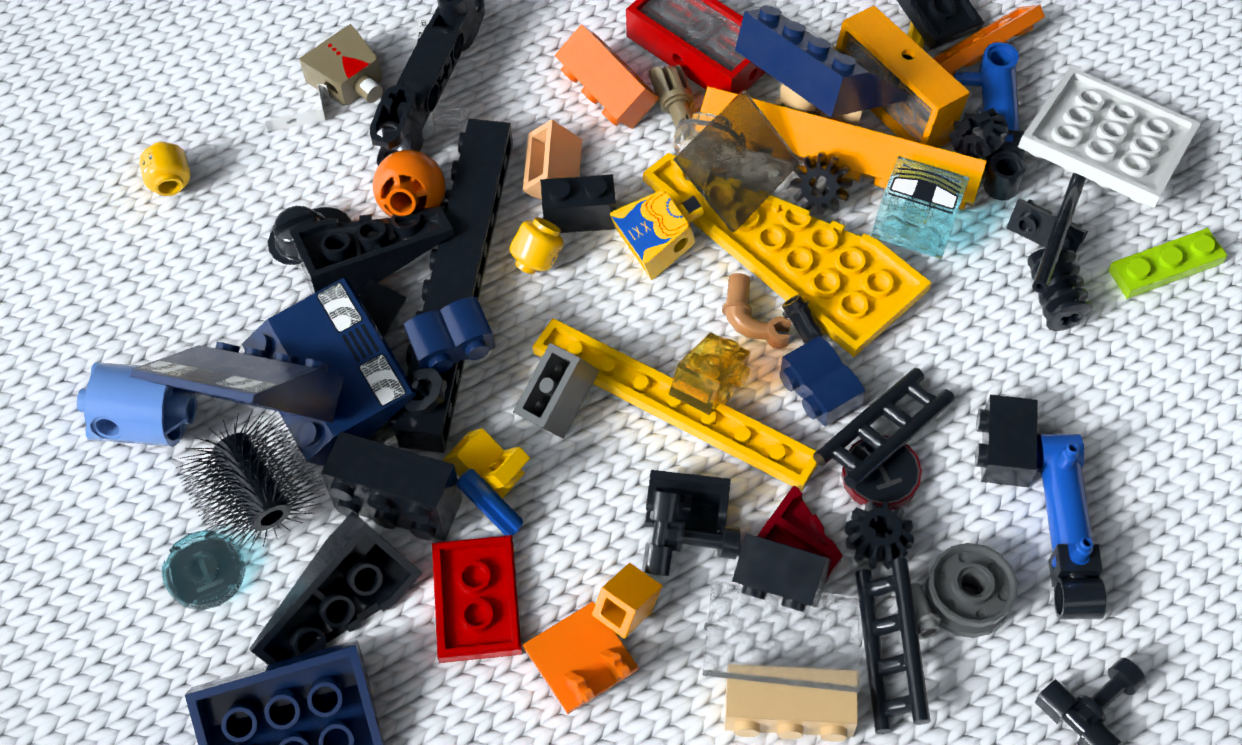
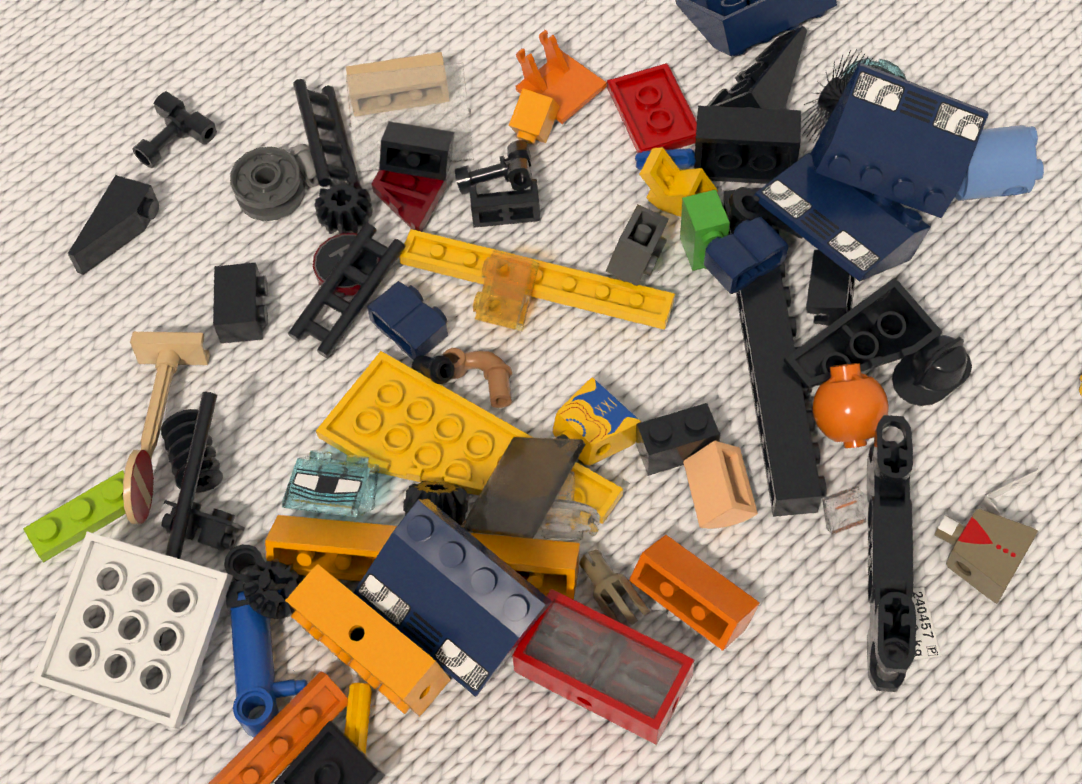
camera: 170 degrees right, 0 degrees up
(479, 391) = (701, 222): none -> bright green brick
(536, 245) = (703, 383): yellow head -> none
(1074, 556) = (186, 229): blue piece -> none
(1086, 398) = (167, 352): none -> tan piece
(1155, 582) = (115, 221): none -> black slope

